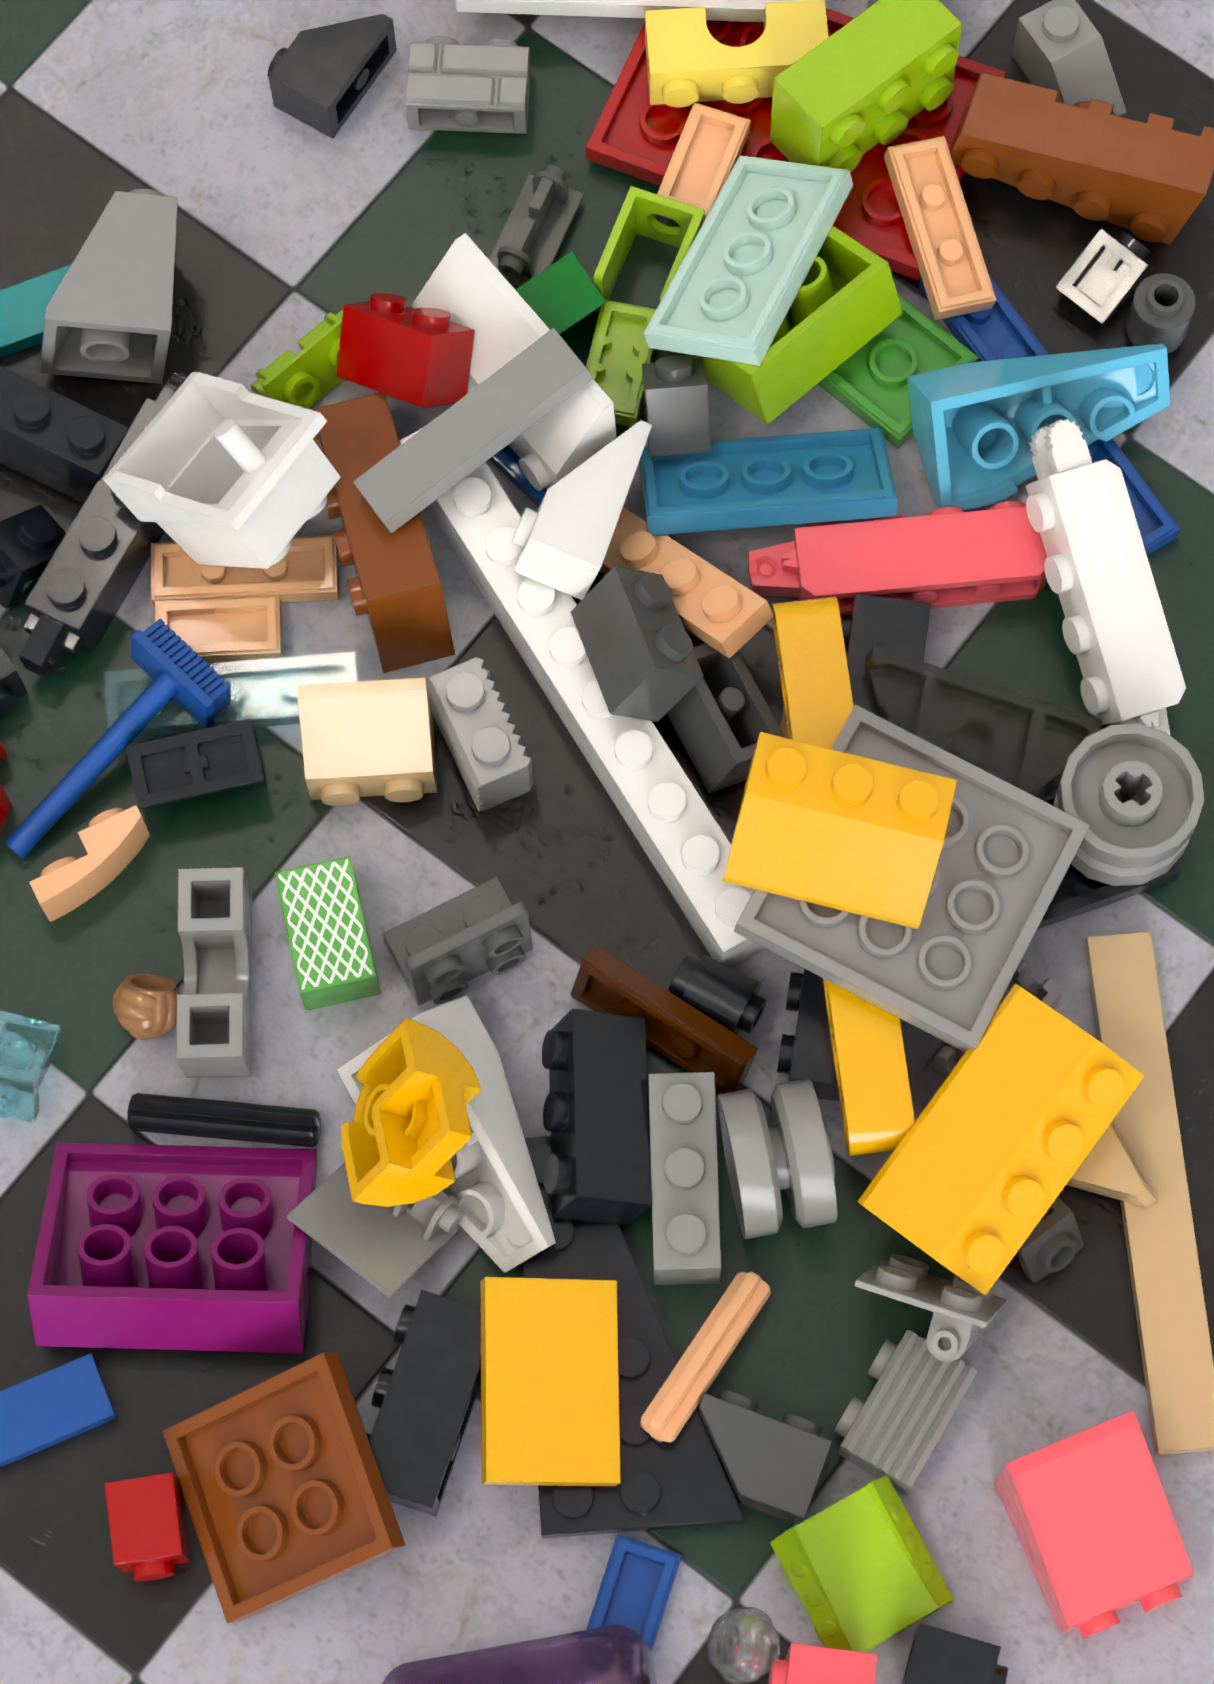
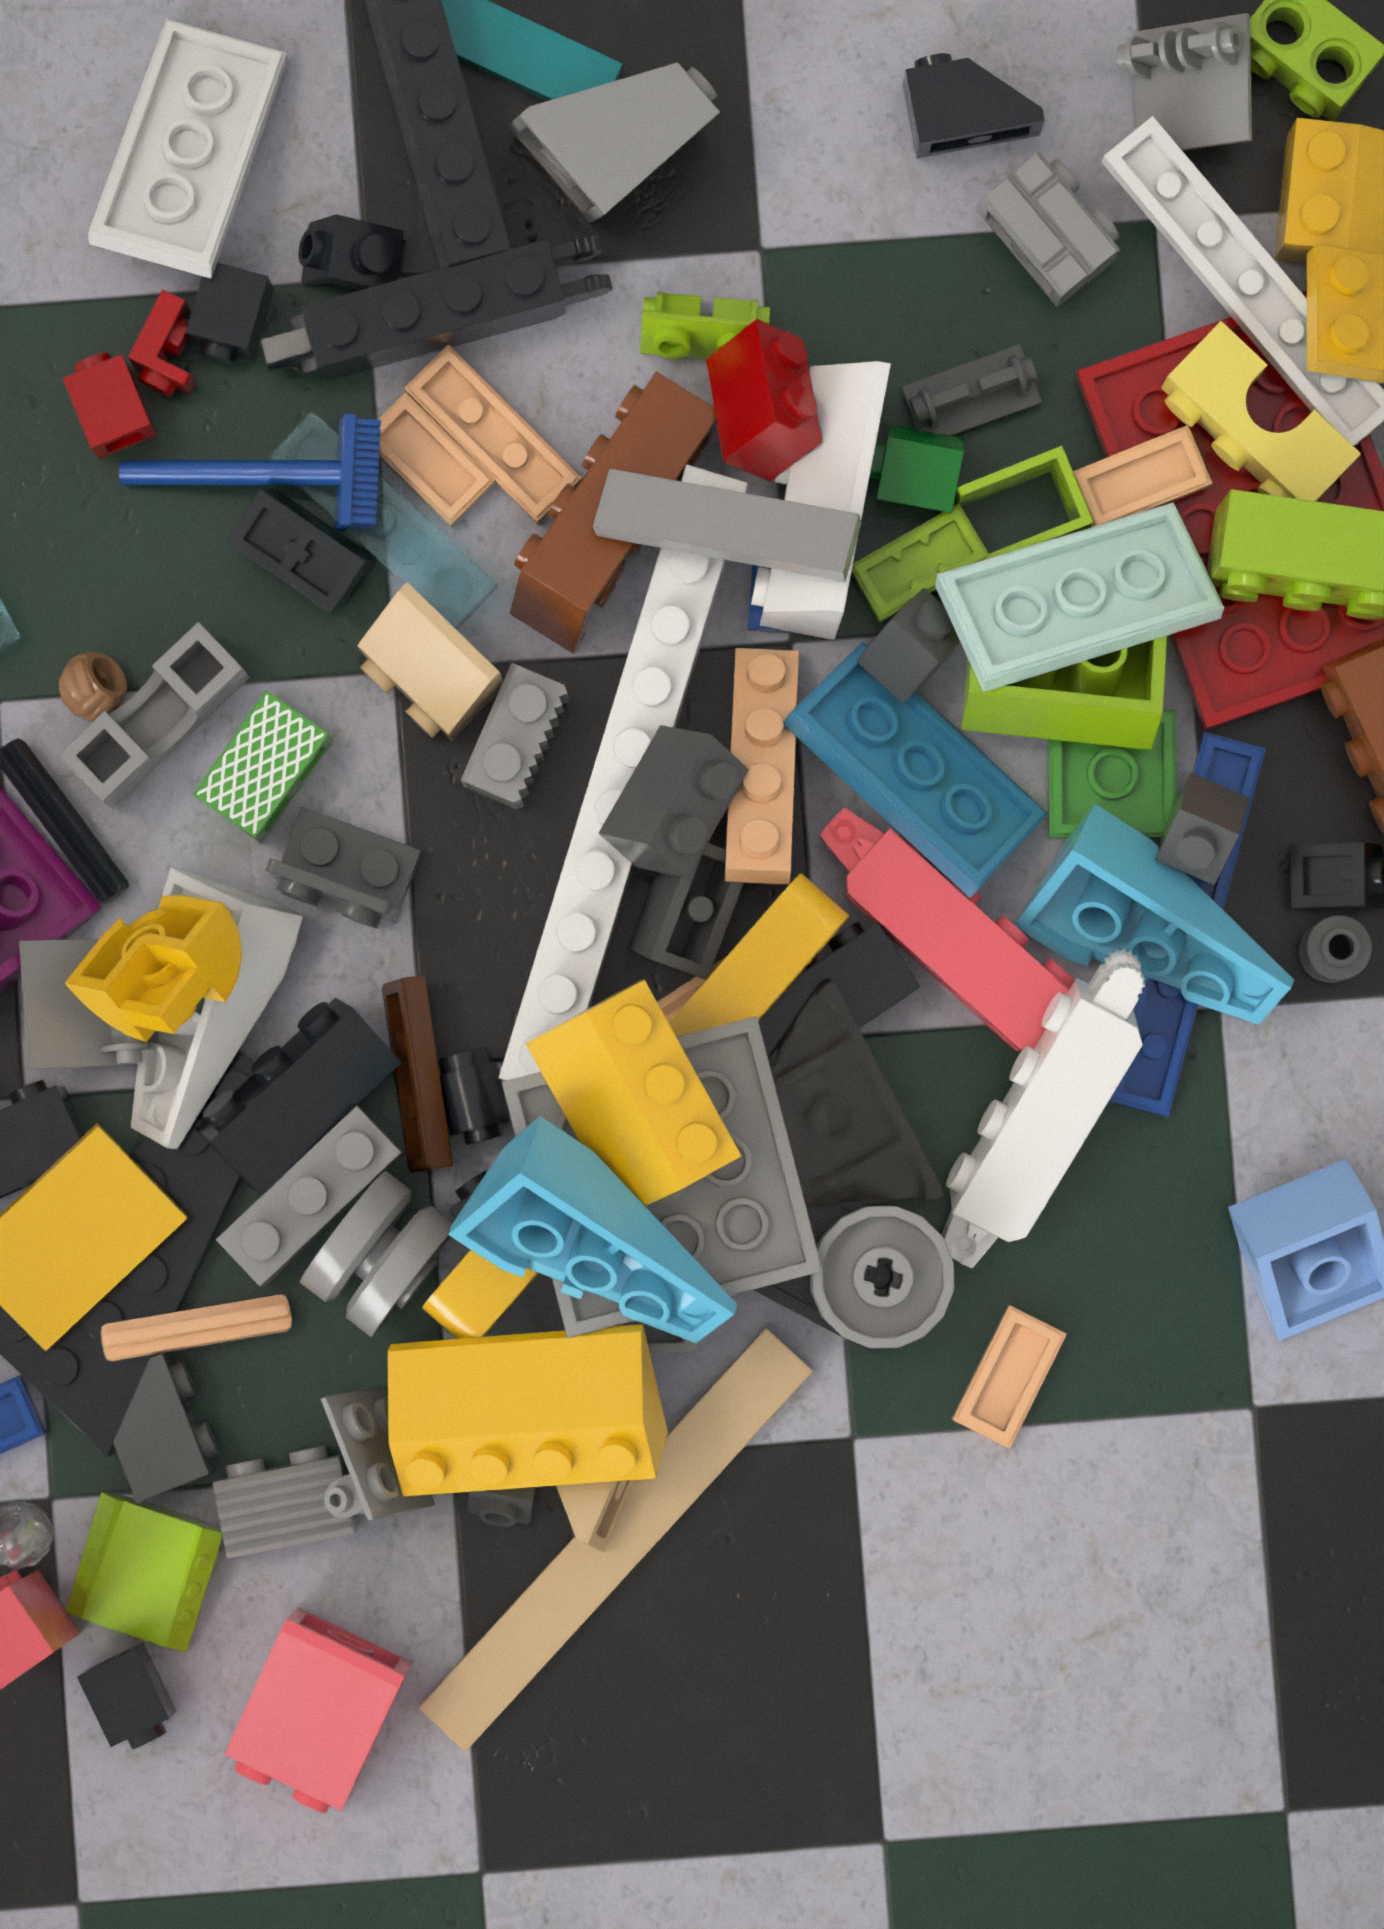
camera: 45 degrees right, 15 degrees up
(111, 845) = (177, 544): light nougat slope -> none
(226, 473) = (532, 363): white piece -> none
(578, 516) = (732, 666): white slope -> none
(895, 956) = (571, 1218): none -> medium azure wedge
(939, 228) = (1257, 706): light nougat tile -> none
(993, 319) = (1202, 828): none -> dark grey brick

